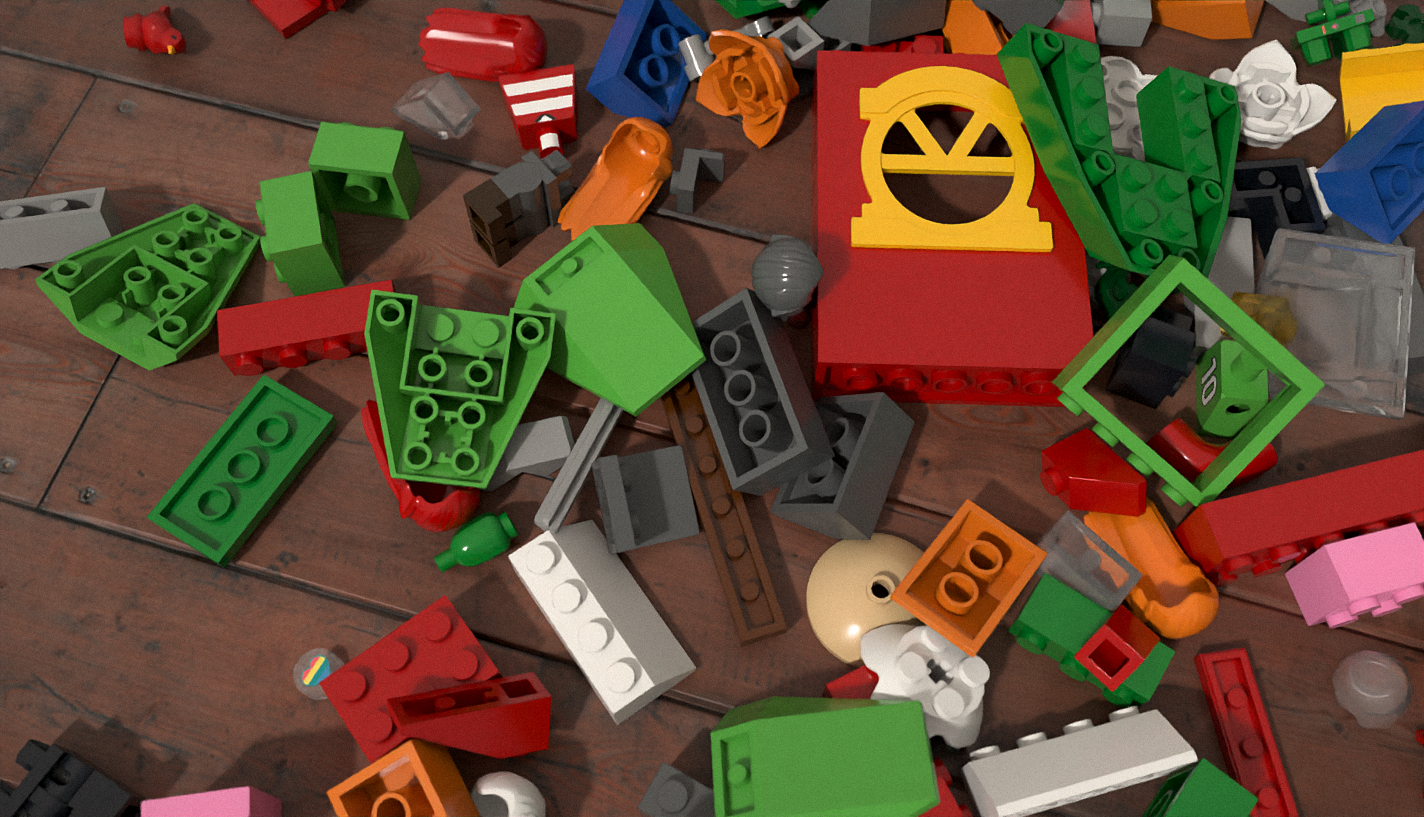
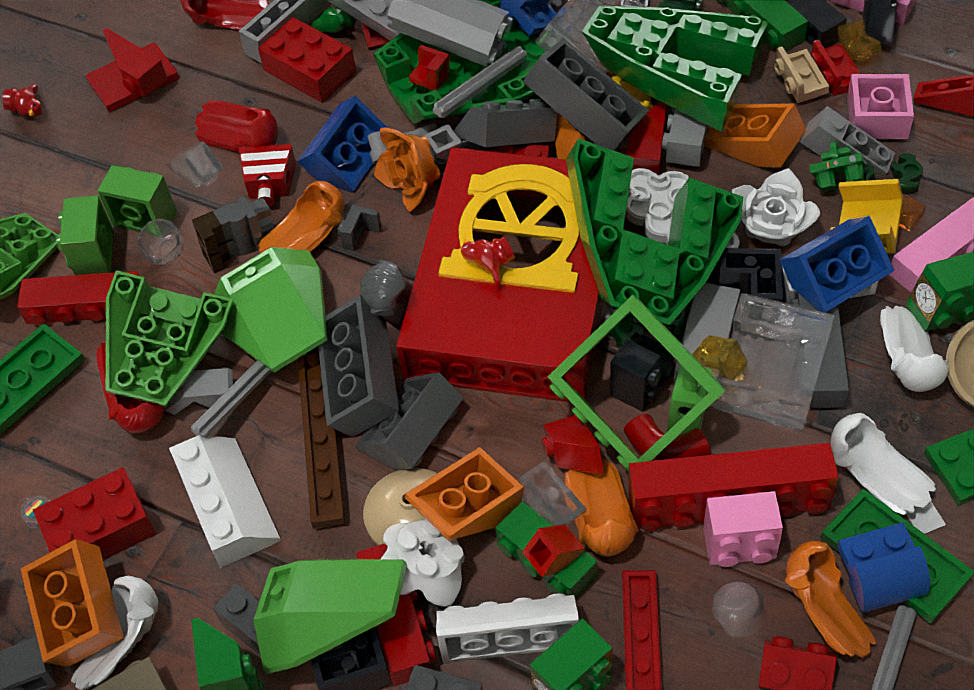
camera: 15 degrees right, 10 degrees down
(413, 229) = (161, 242): none -> clear hair
(478, 541) = (156, 442): green plant -> none
(483, 717) = (134, 543): red slope -> none
(645, 498) = (269, 426): dark grey bracket -> none
(926, 210) = (488, 255): none -> red animal

